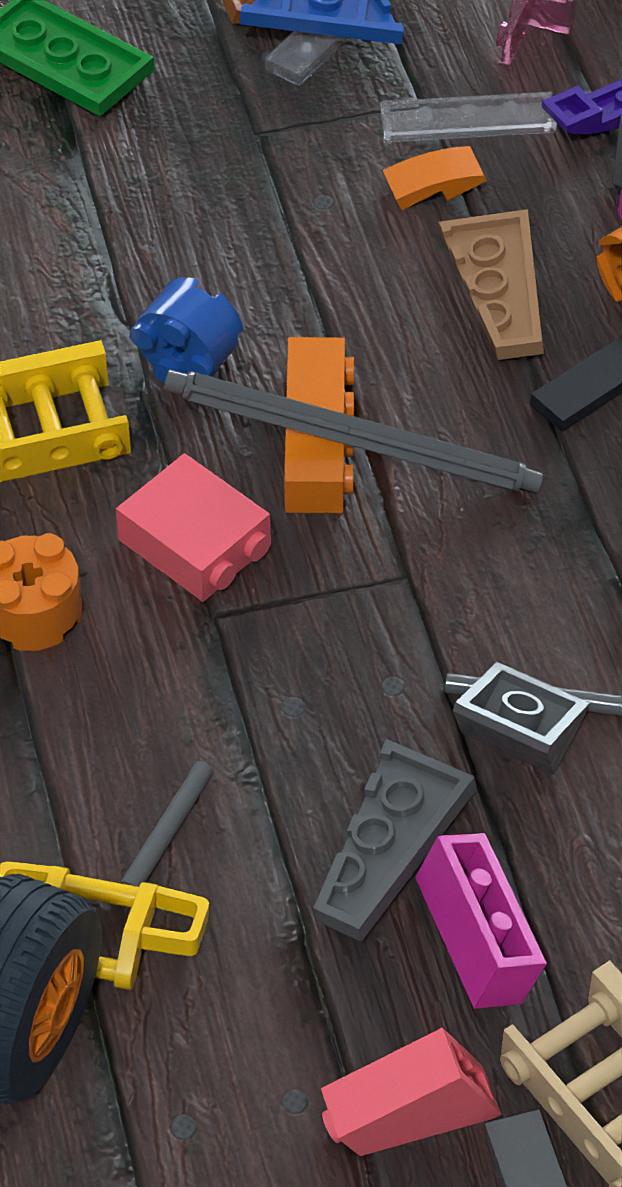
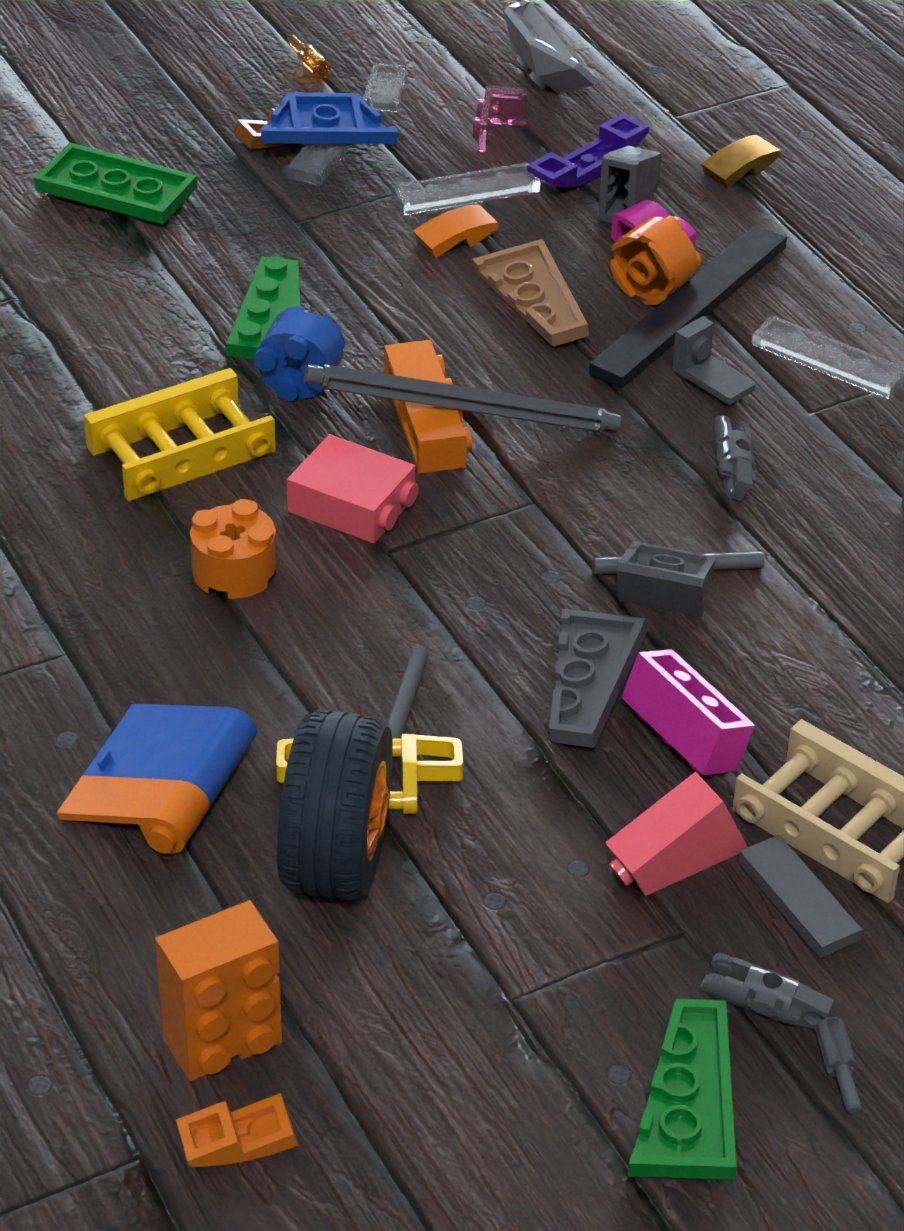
camera: 15 degrees left, 10 degrees down
(184, 248) = (270, 293): none -> green wing

